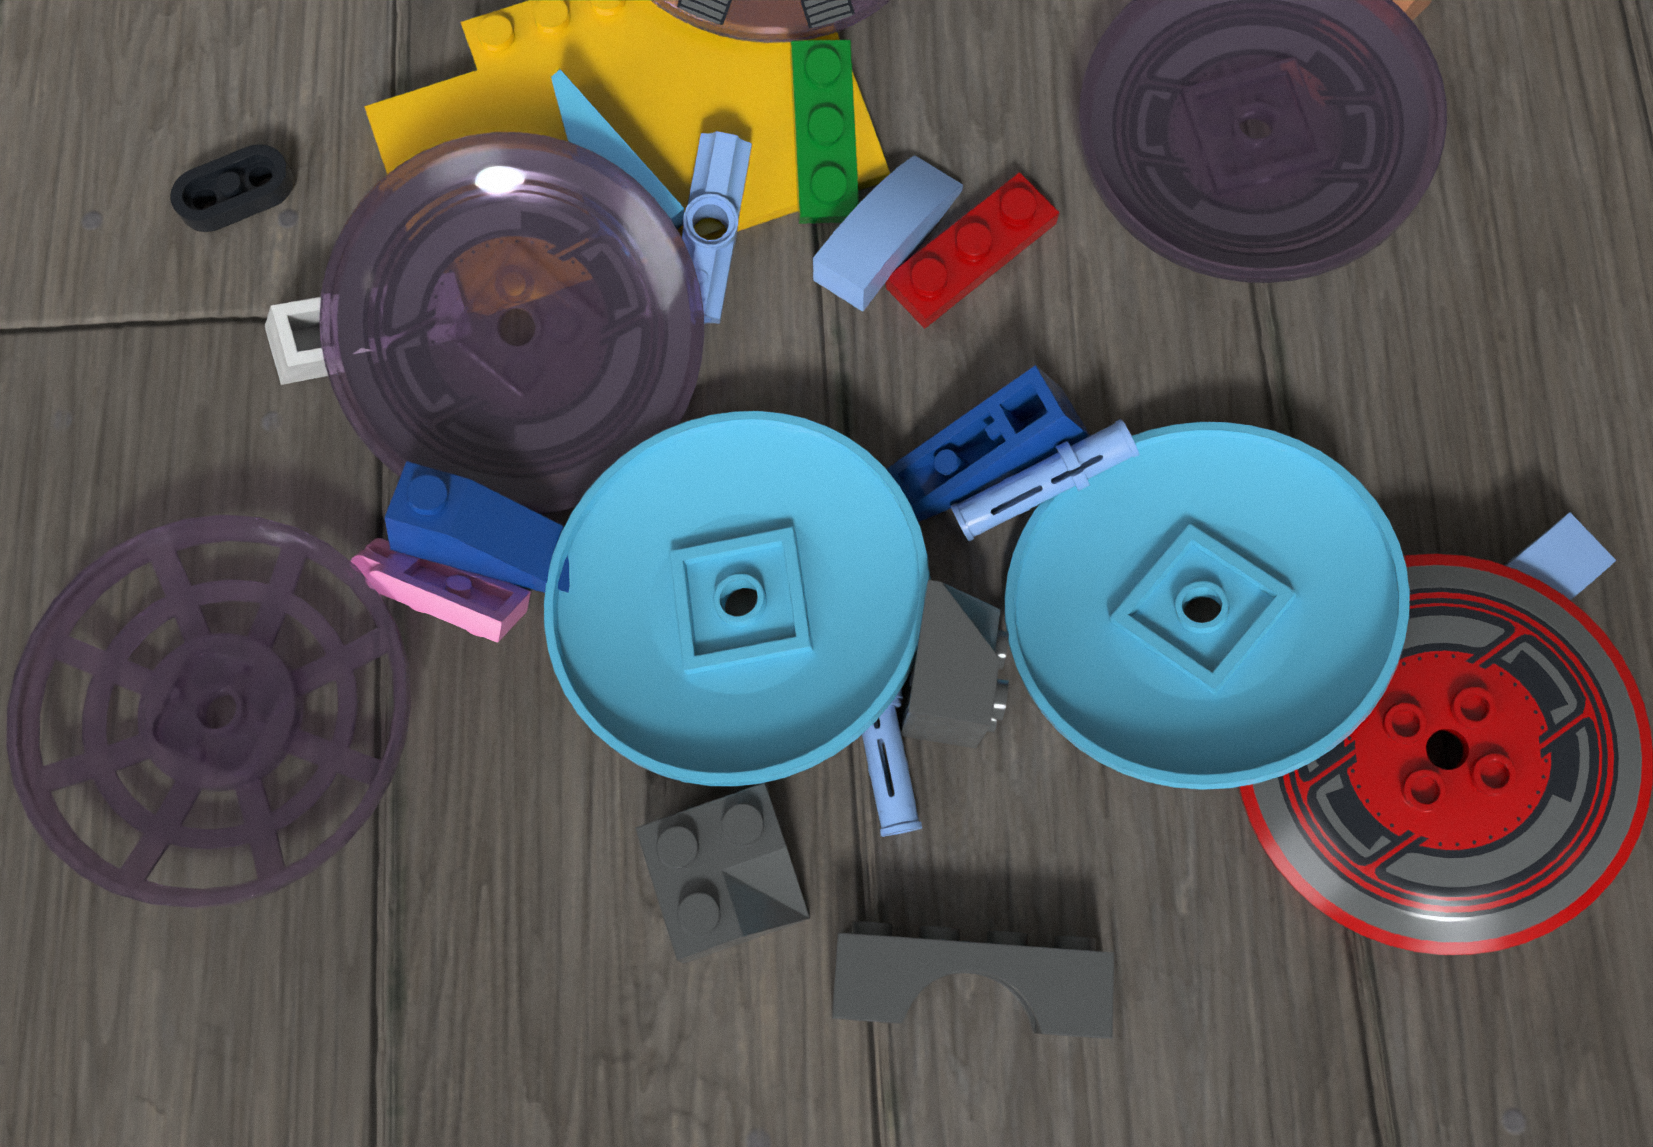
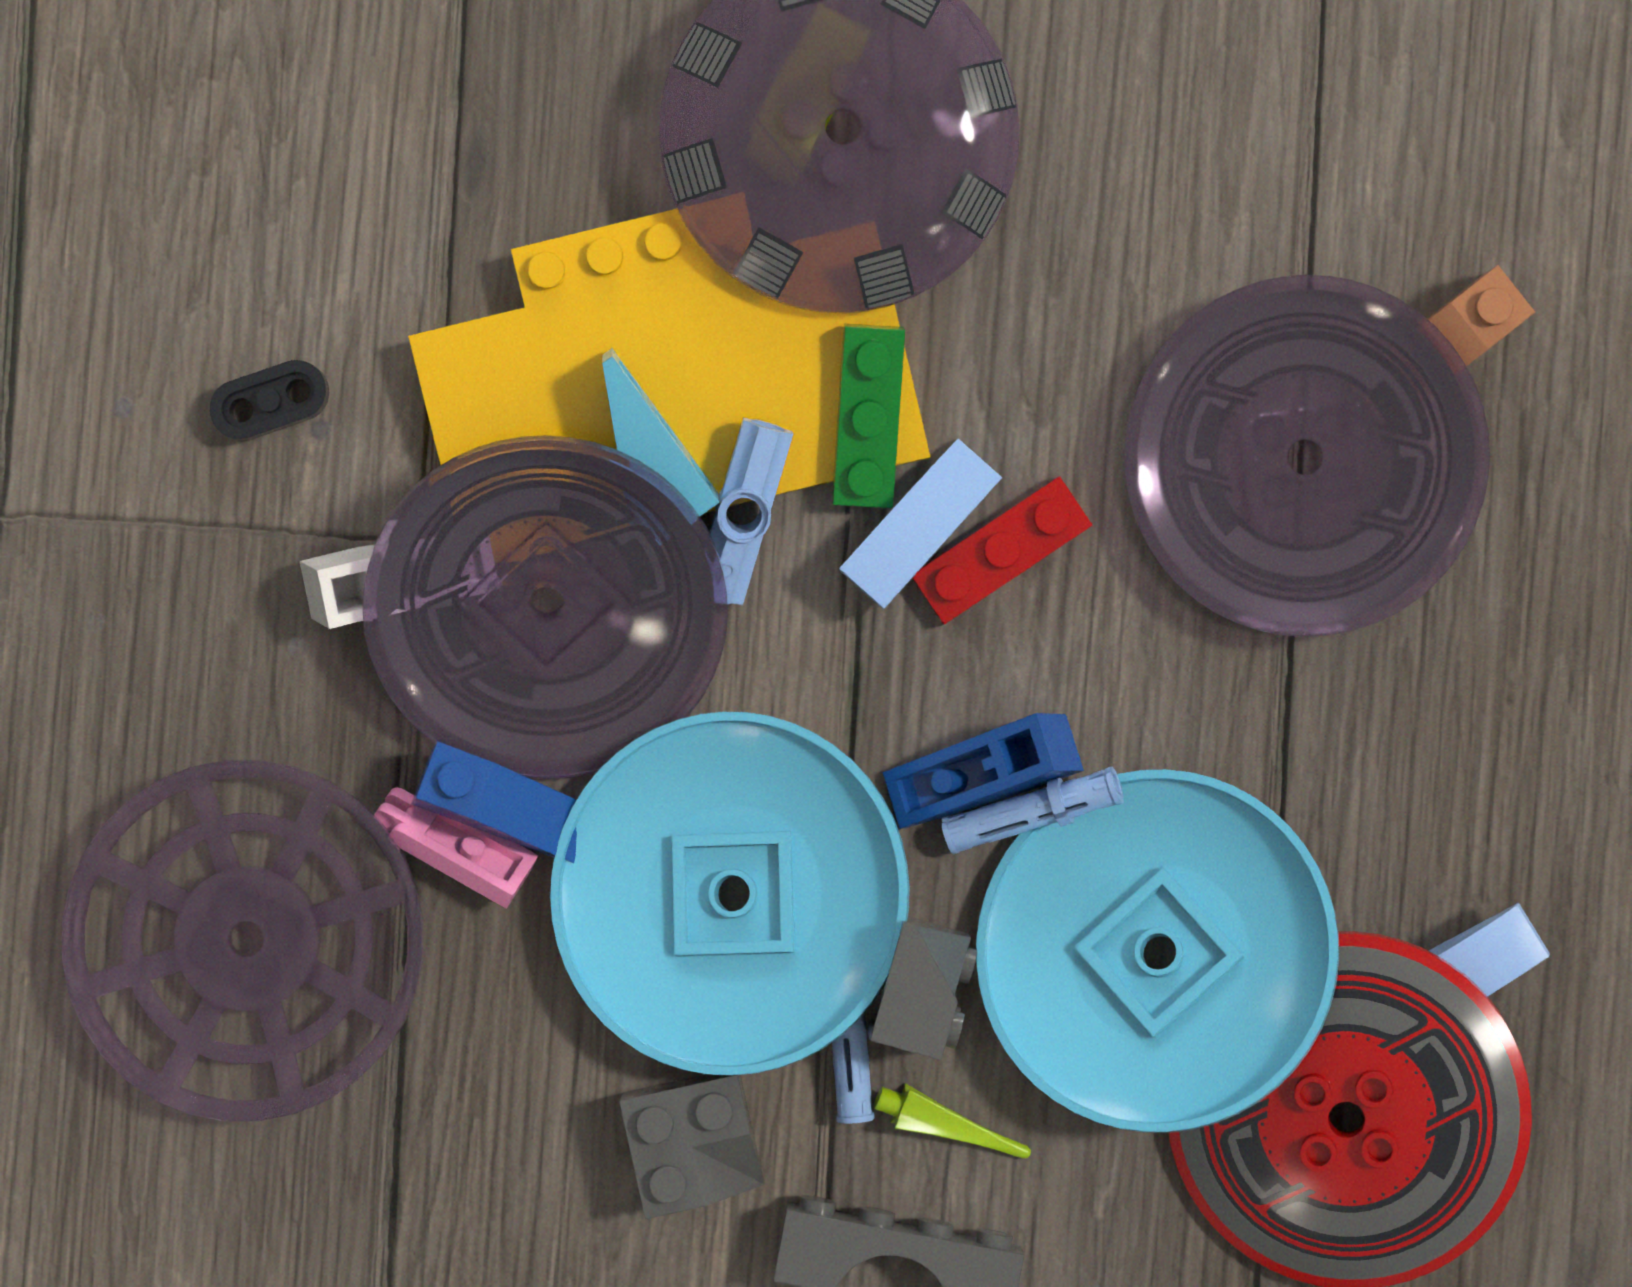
camera: 10 degrees right, 15 degrees up
(976, 817) = (923, 1115): none -> lime piece

